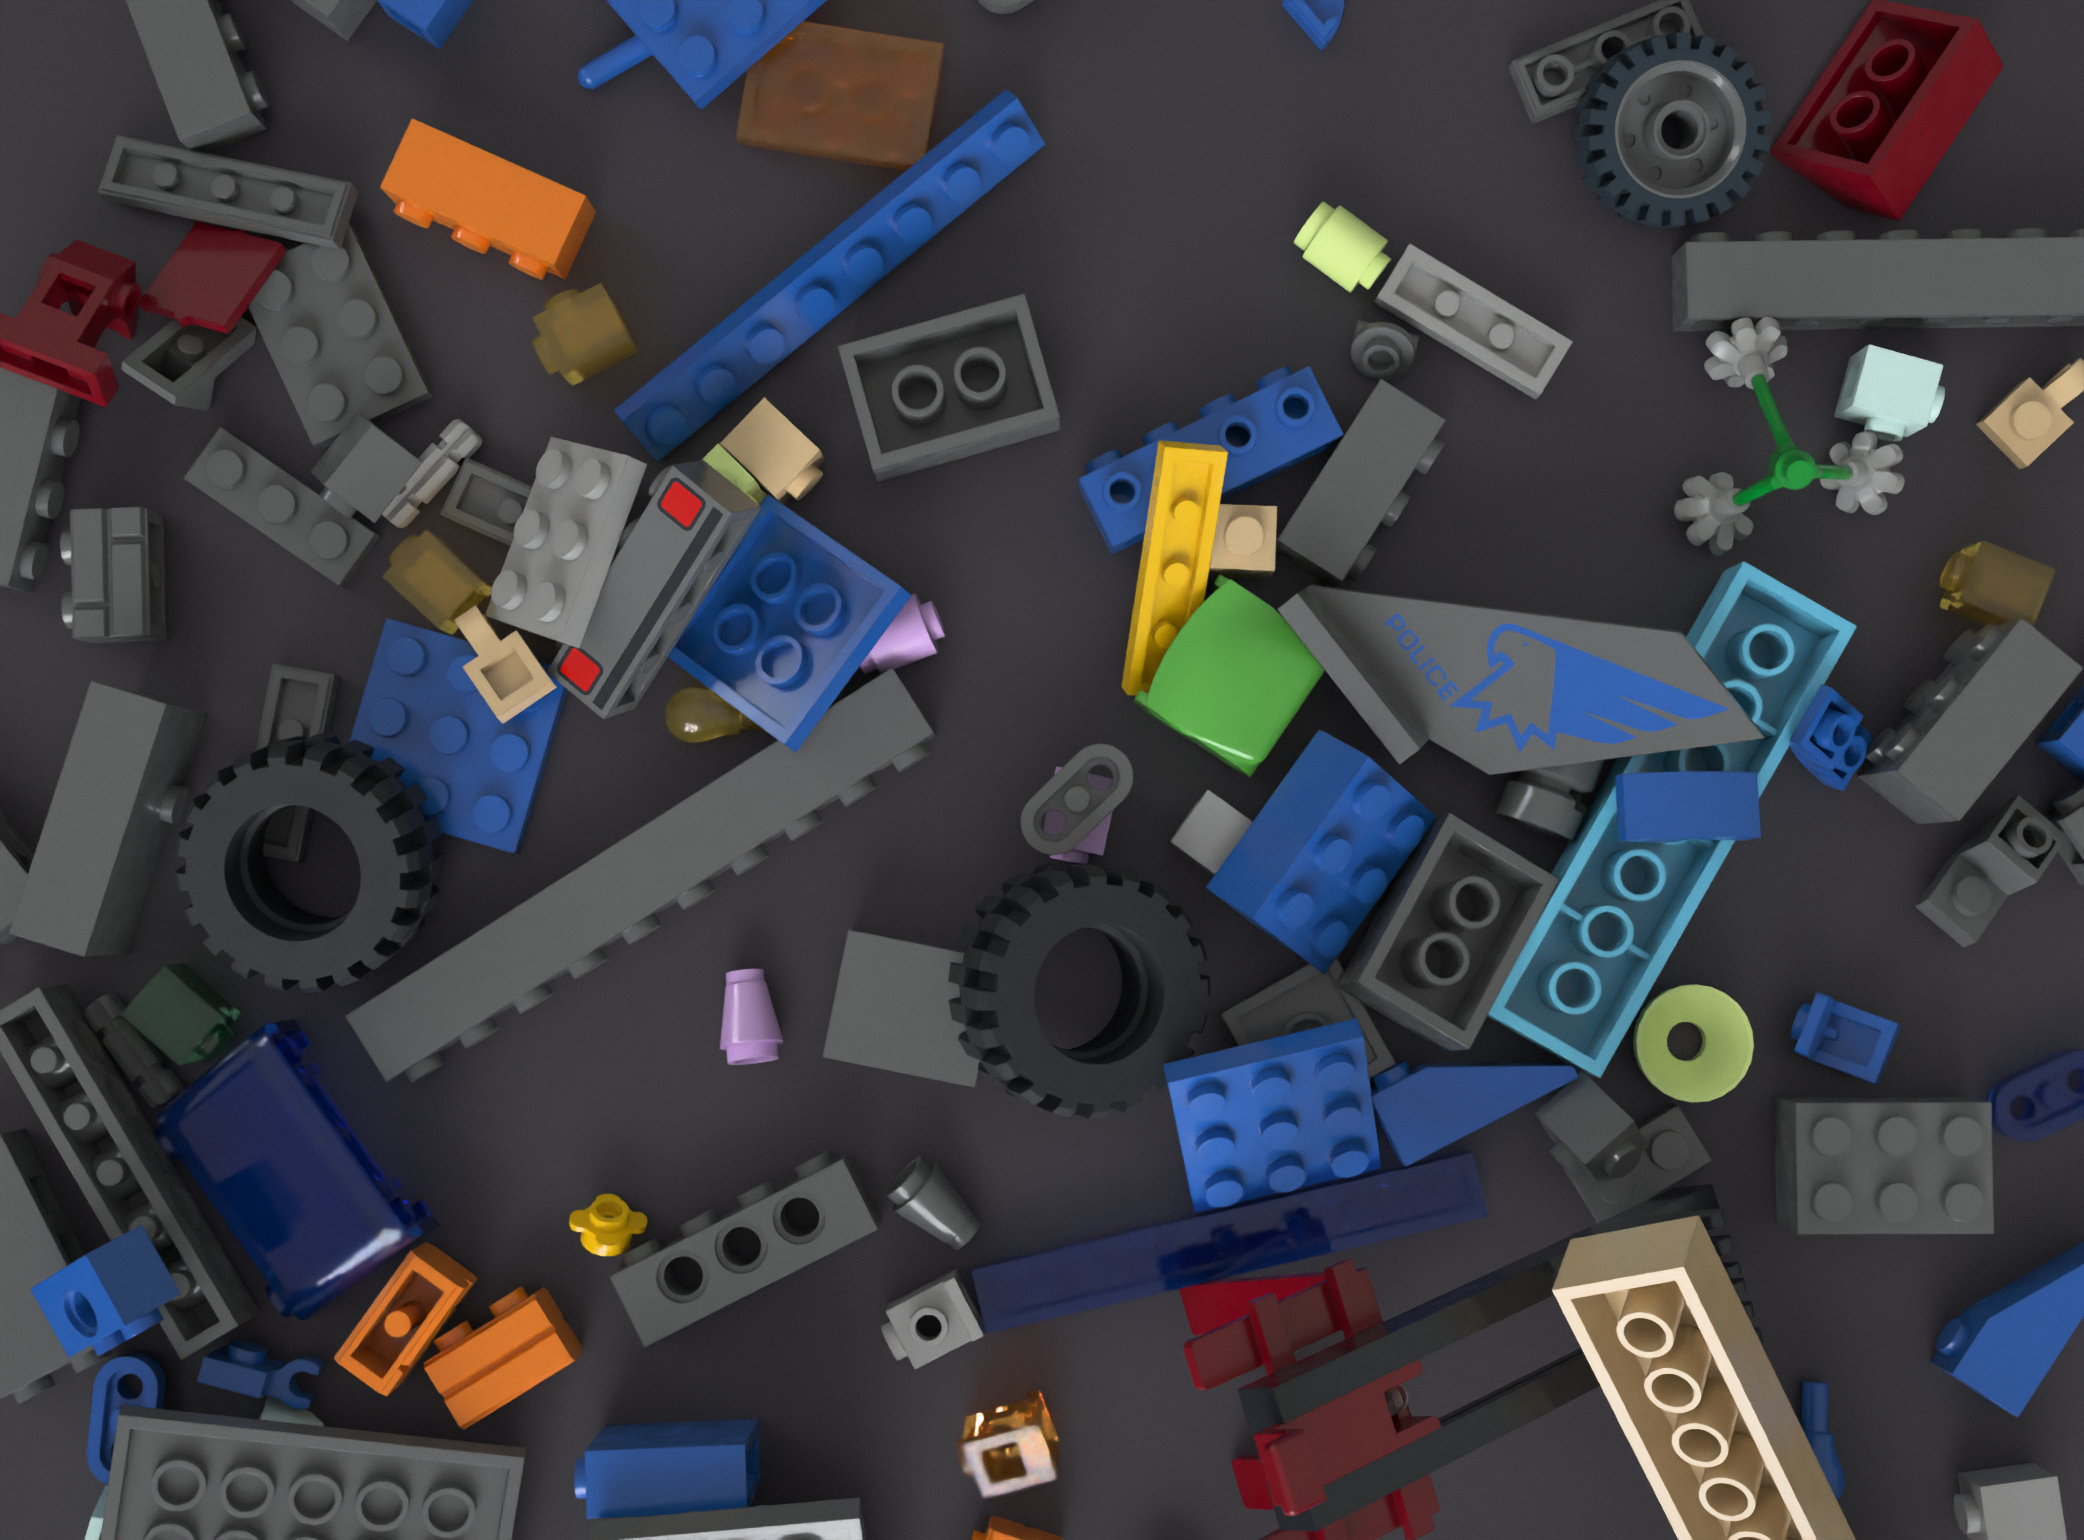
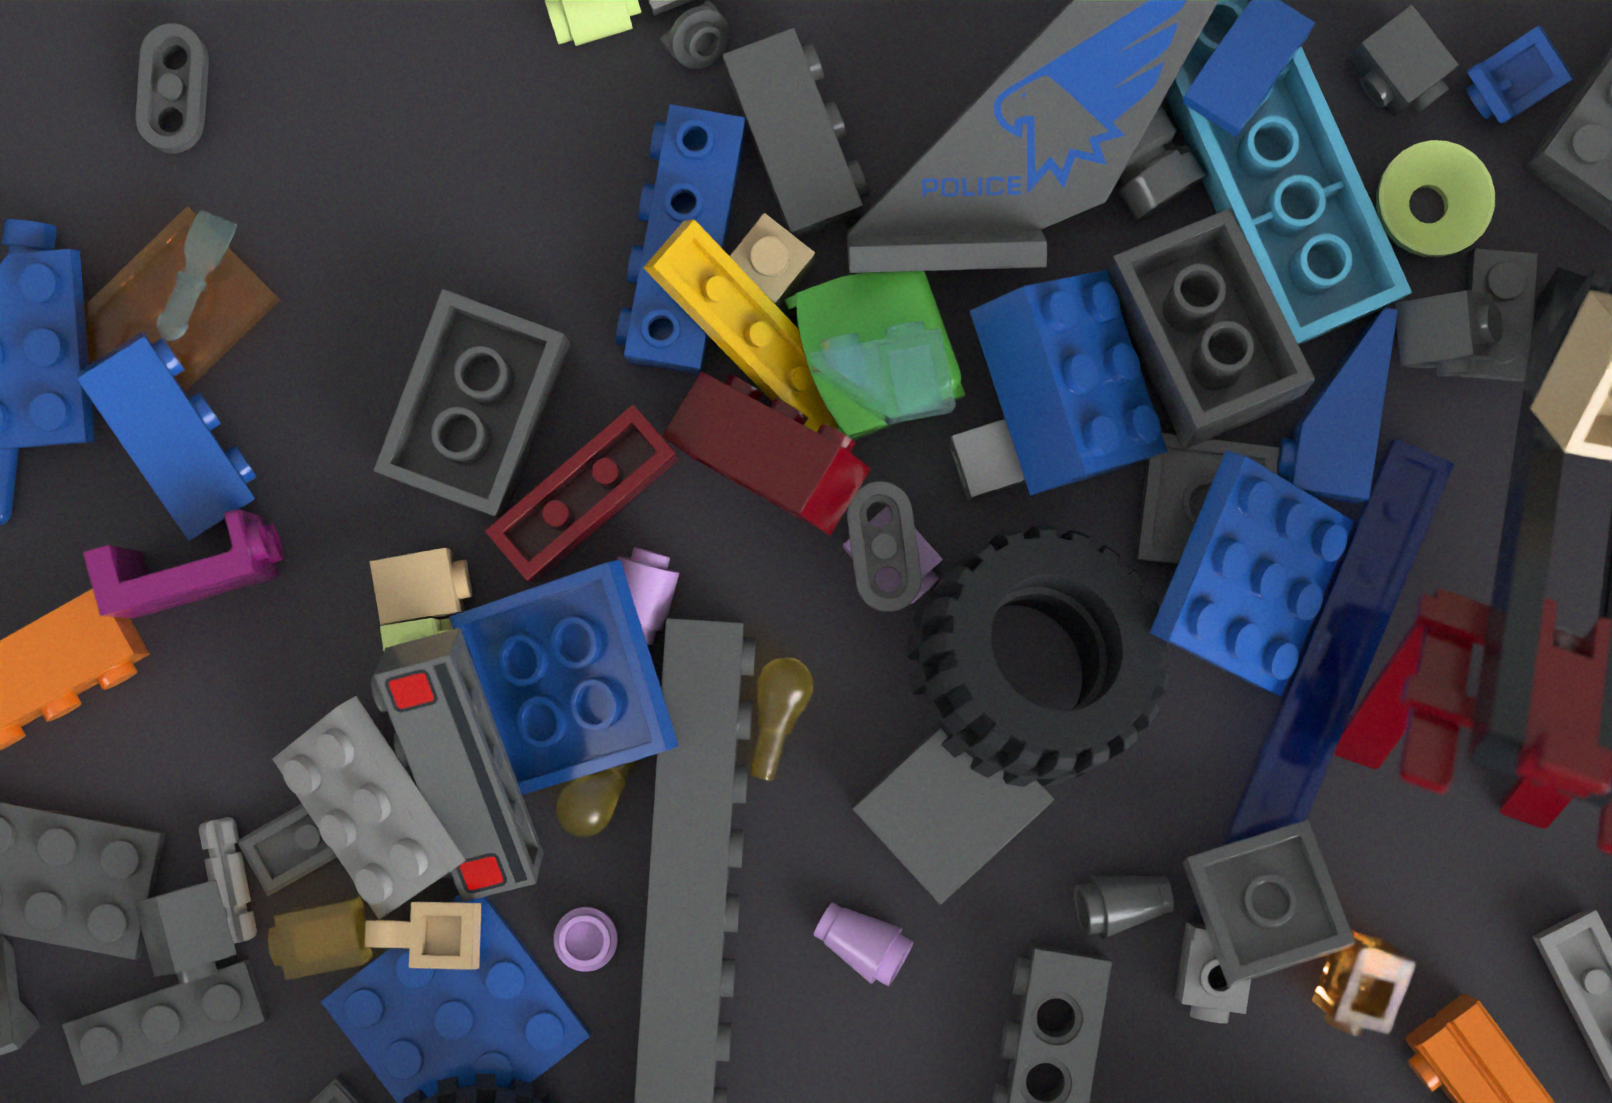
camera: 55 degrees left, 0 degrees up
(582, 334) = (206, 672): clear yellow brick -> none
(590, 793) = (585, 939): none -> lavender plate
(602, 221) = (128, 591): none -> magenta panel
(749, 162) = (168, 433): none -> blue brick
(831, 276) = (309, 436): blue plate -> none
(899, 808) = (782, 695): none -> clear yellow piece
(915, 83) = (203, 253): none -> clear light blue piece
(942, 527) = (582, 494): none -> dark red brick
(1017, 1321) = (1268, 902): none -> dark grey plate
(1087, 649) = (768, 450): none -> dark red brick
(1216, 703) = (892, 376): none -> clear light blue slope
(1785, 937) = (1403, 64): none -> dark grey brick

